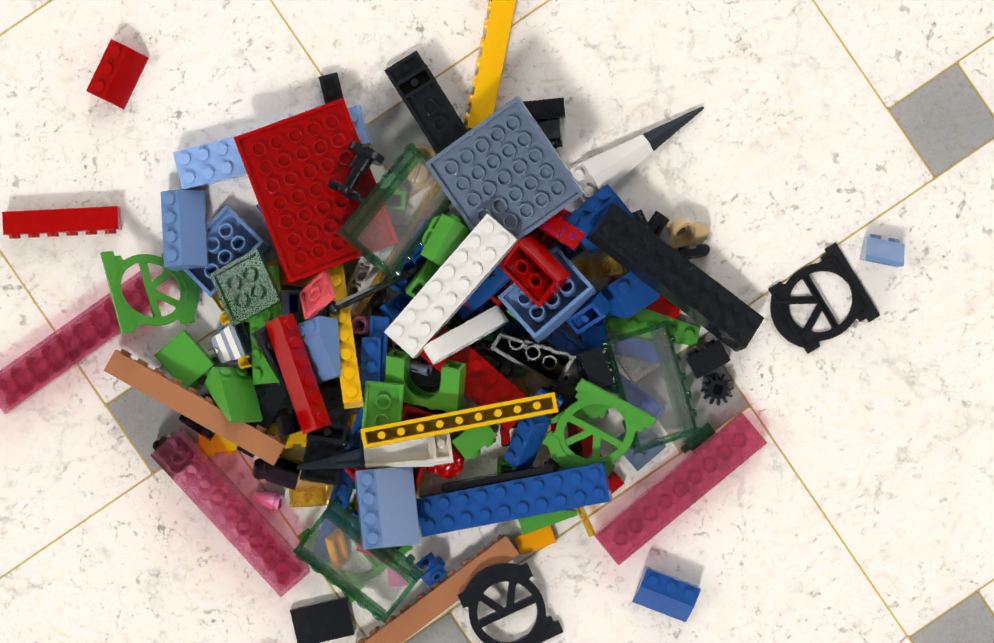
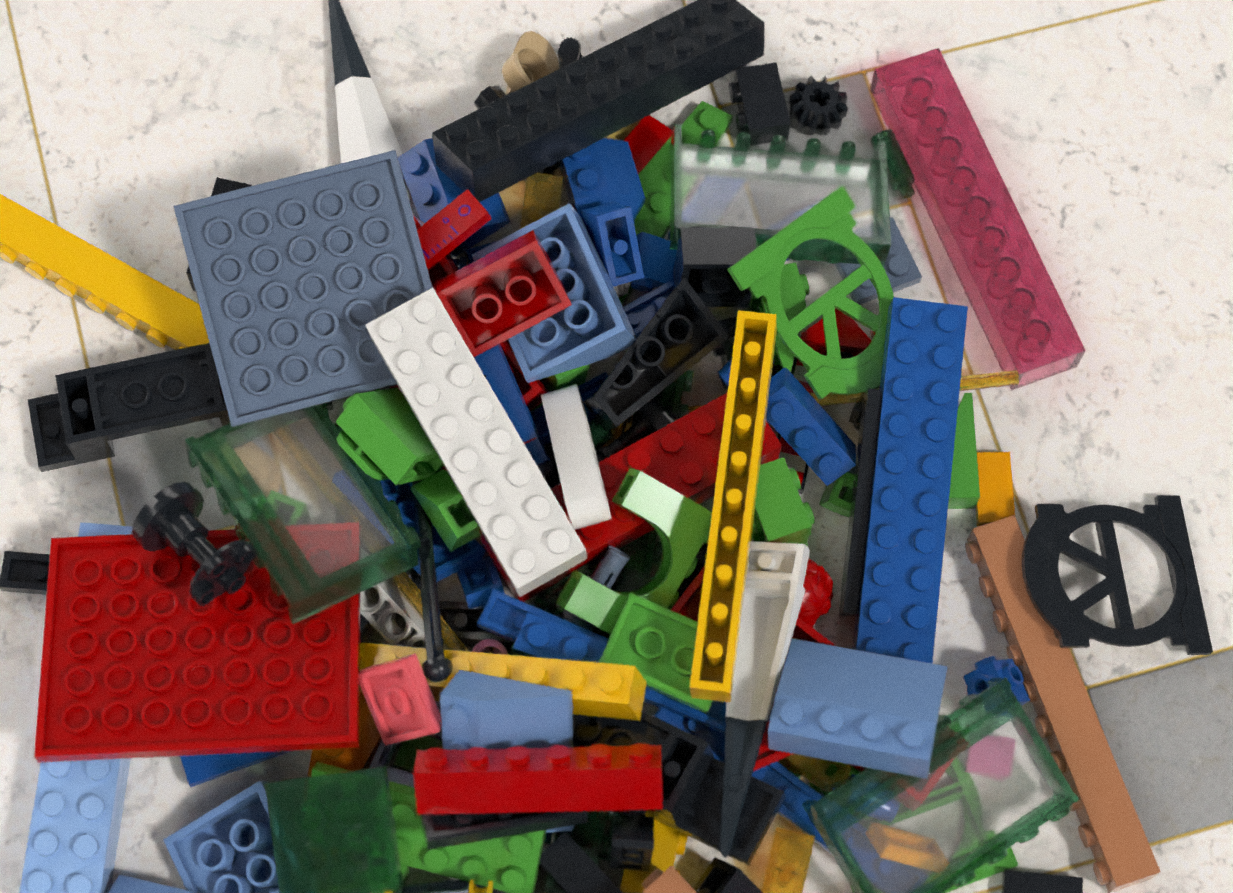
camera: 80 degrees left, 20 degrees down
(666, 594) = (1158, 297): blue slope -> none

